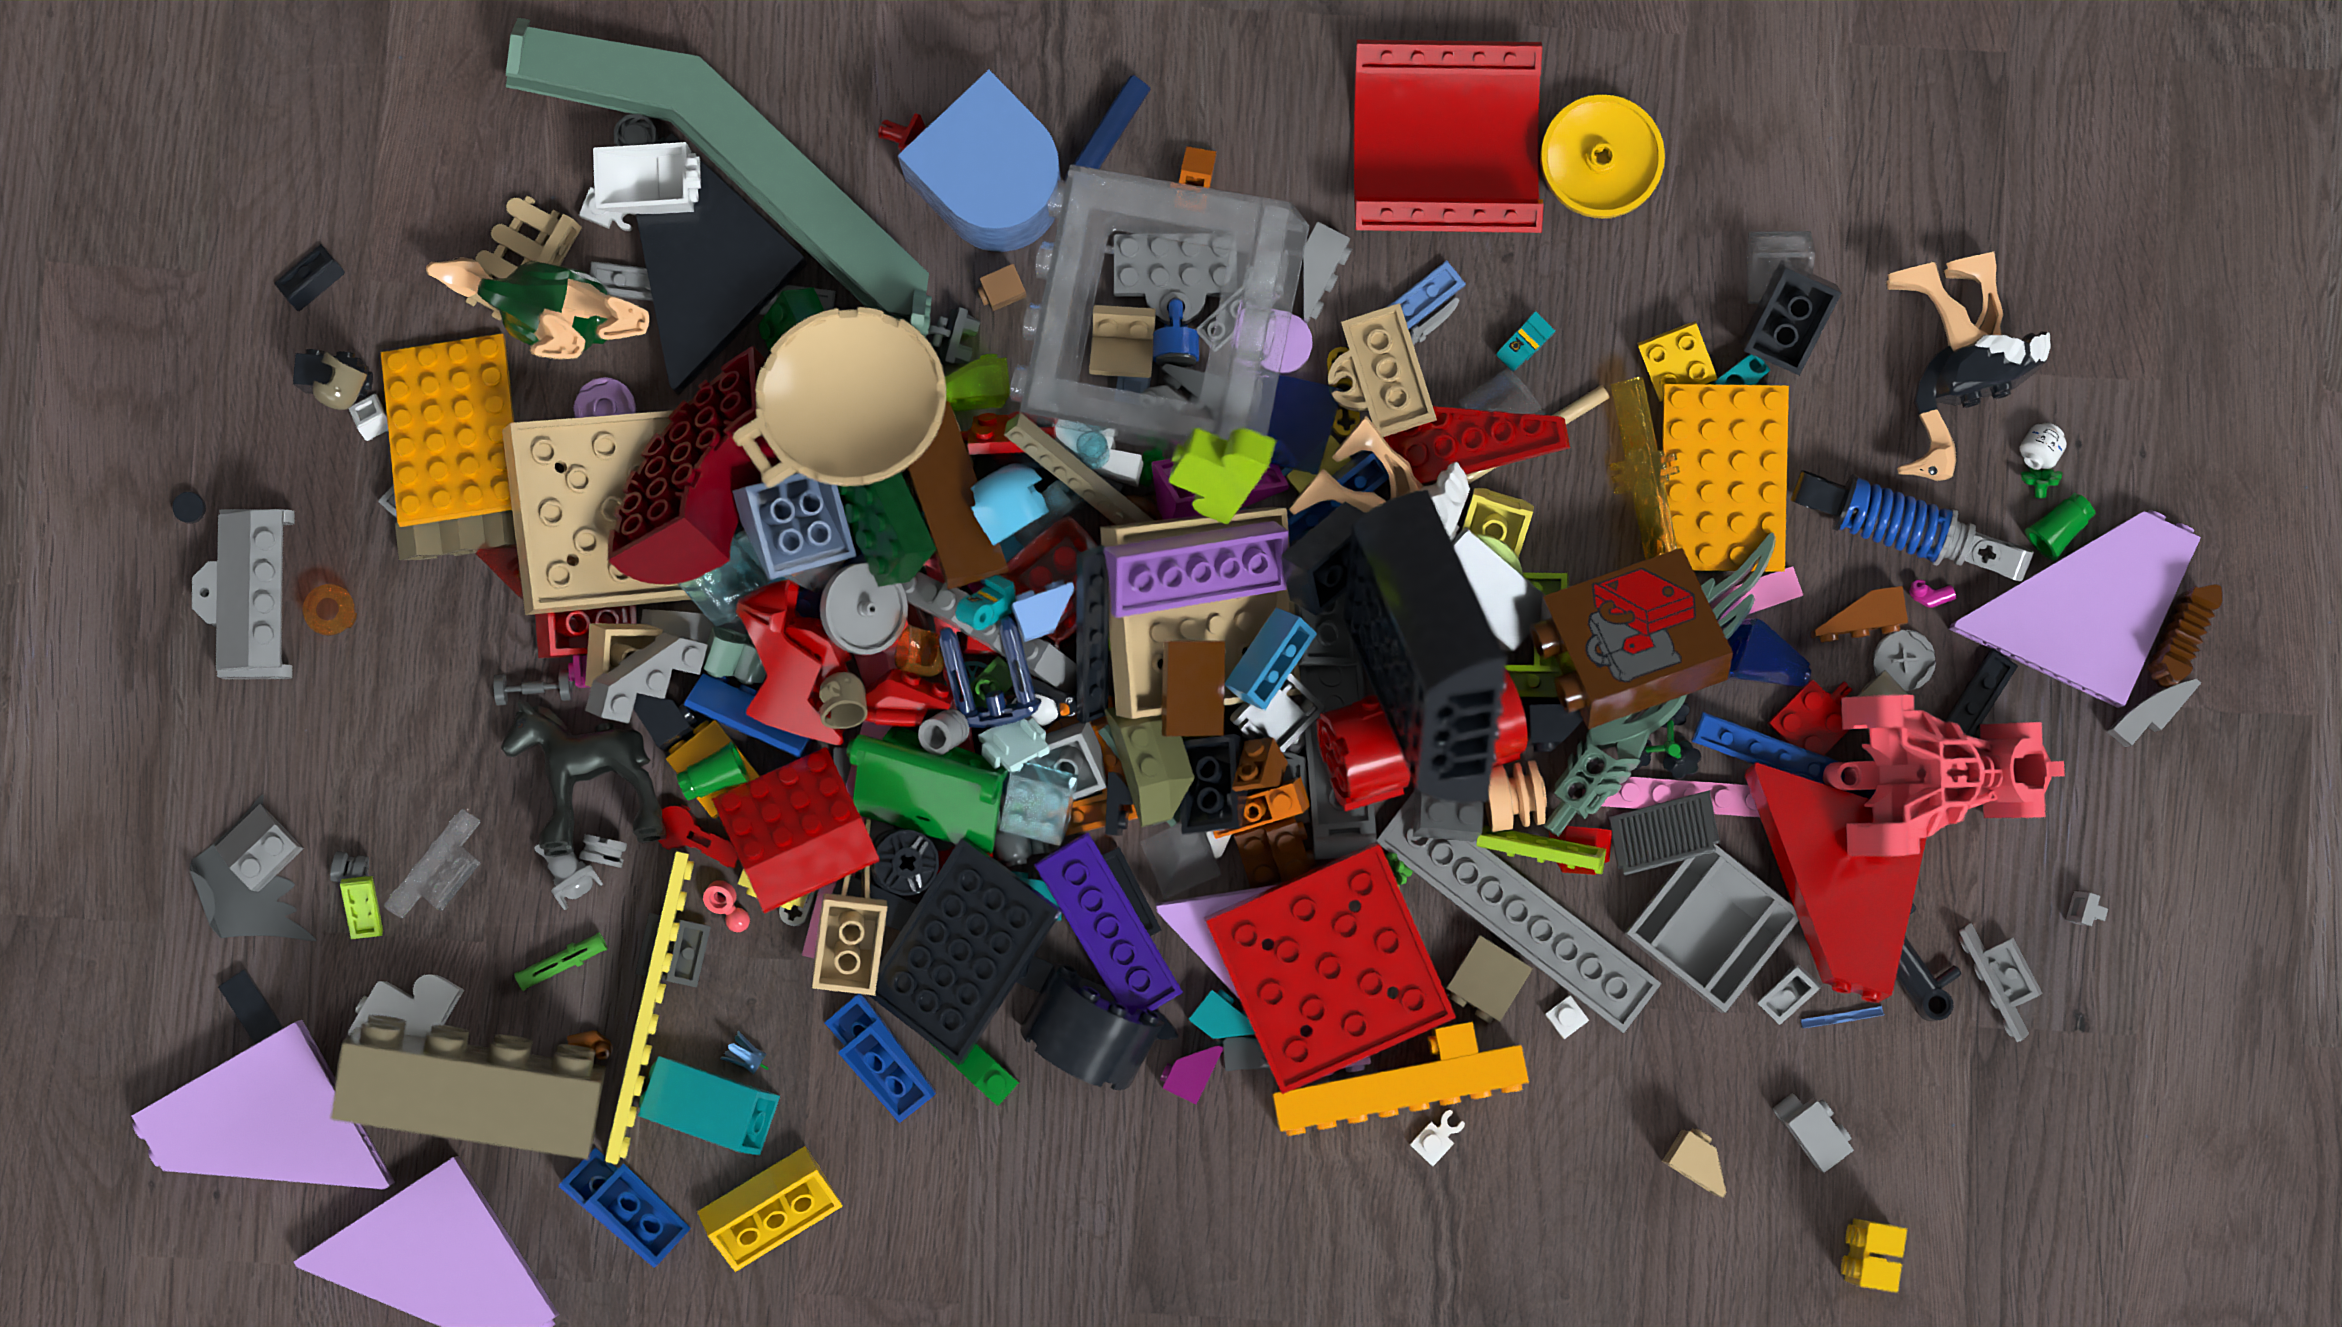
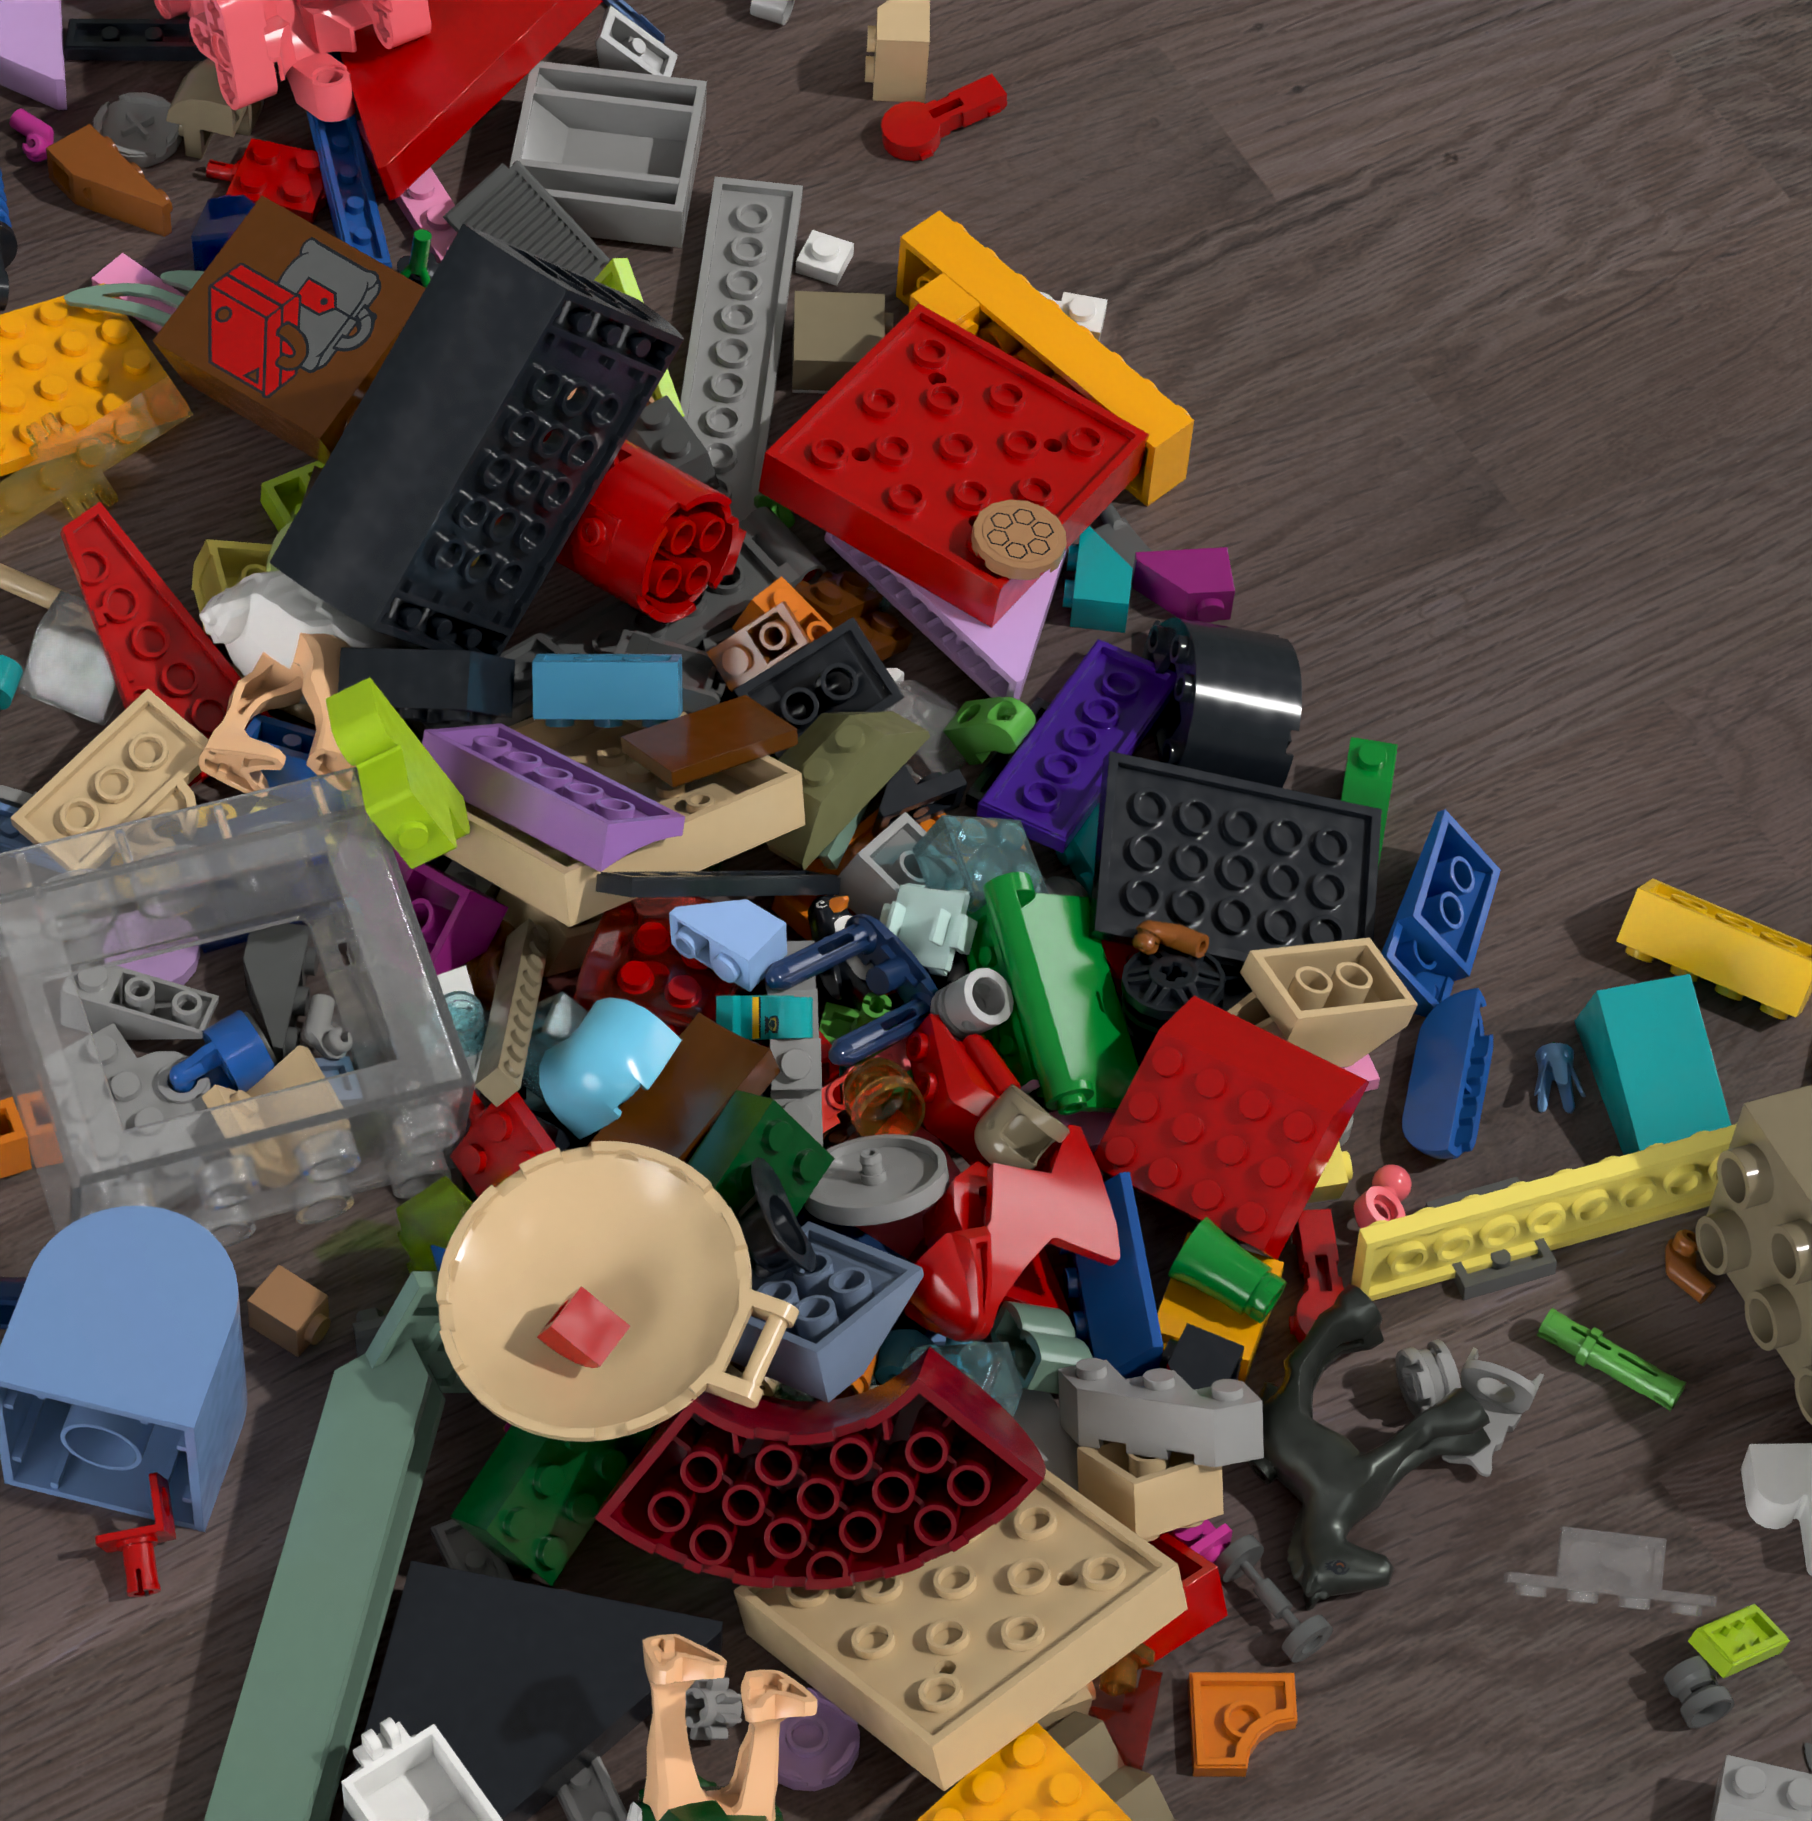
camera: 125 degrees left, 30 degrees down
(486, 628) = (1234, 1715): none -> orange tile
(643, 365) = (712, 1709): none -> light grey gear
(776, 990) = (1448, 1078): none -> blue brick
(838, 382) = (583, 1330): none -> brick
(842, 520) = (771, 1227): none -> black piece
(934, 877) = (1172, 935): none -> dark orange arm
(1145, 883) = (994, 725): none -> bright green leg
(1233, 953) = (1018, 539): none -> medium nougat tile
(1632, 1132) = (915, 129): none -> red piece

